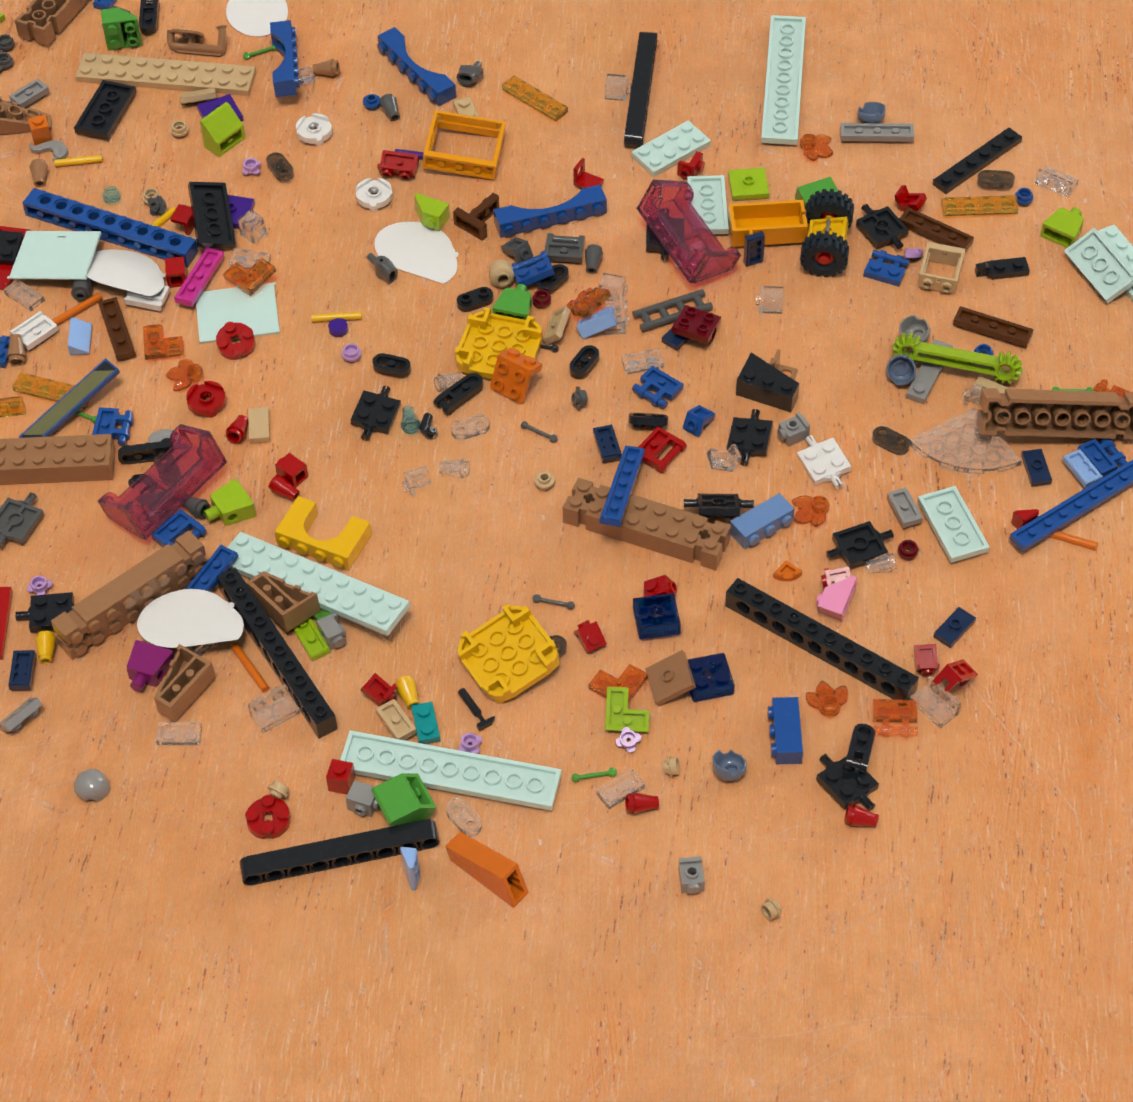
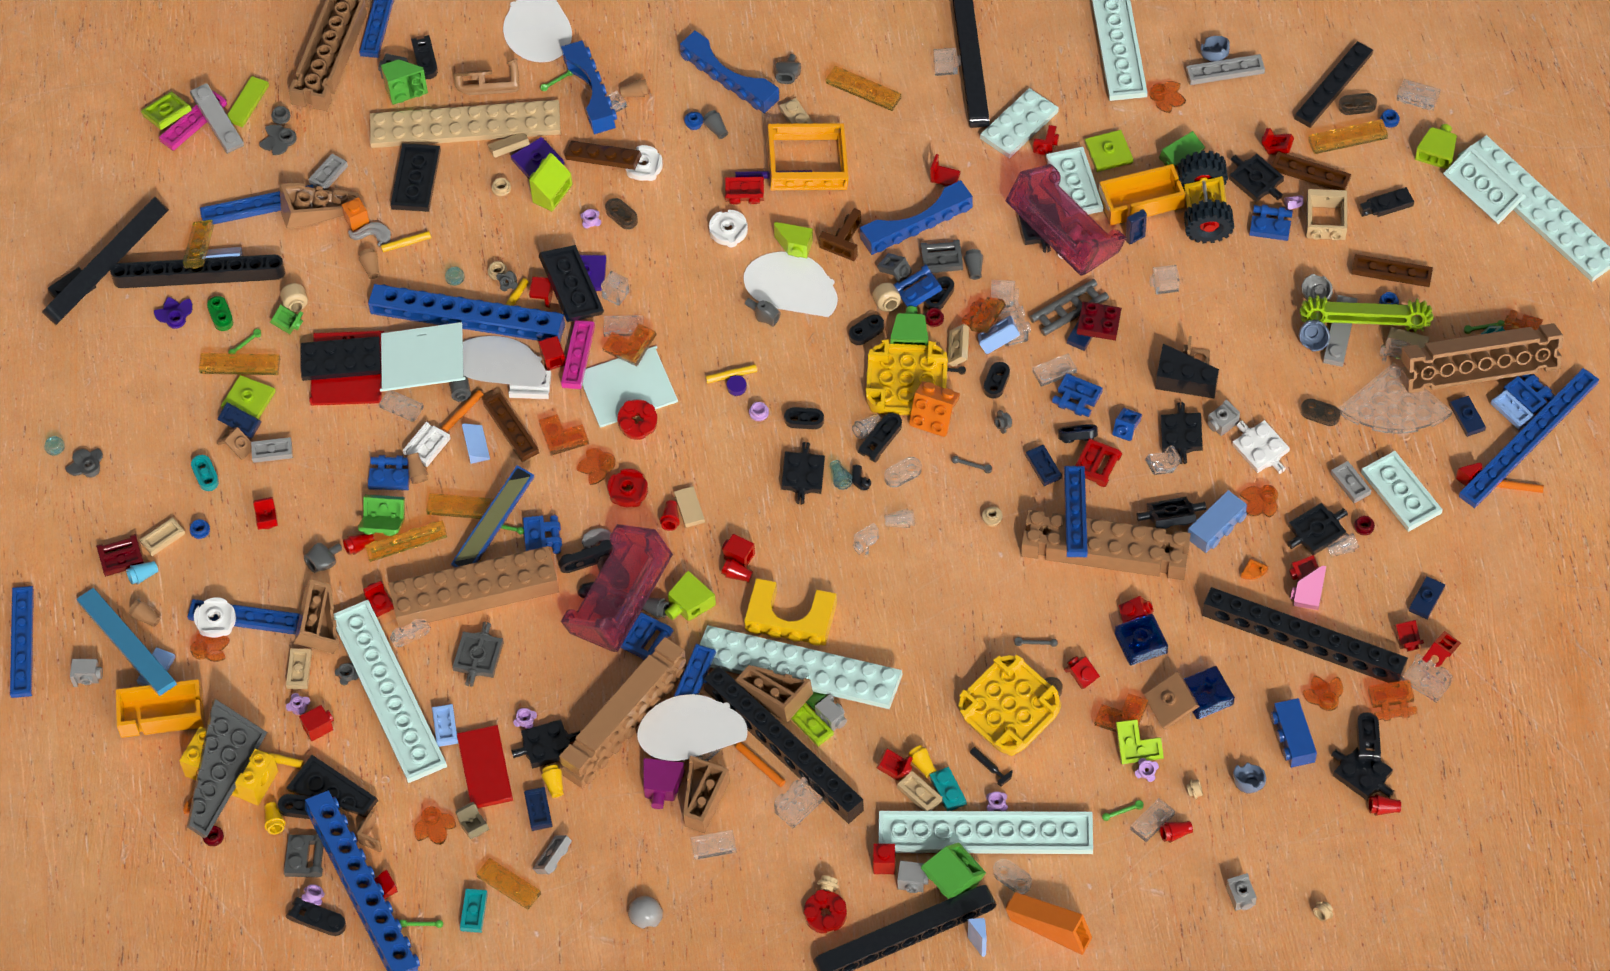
camera: 10 degrees left, 5 degrees up
(279, 116) = (603, 155): none -> reddish brown plate

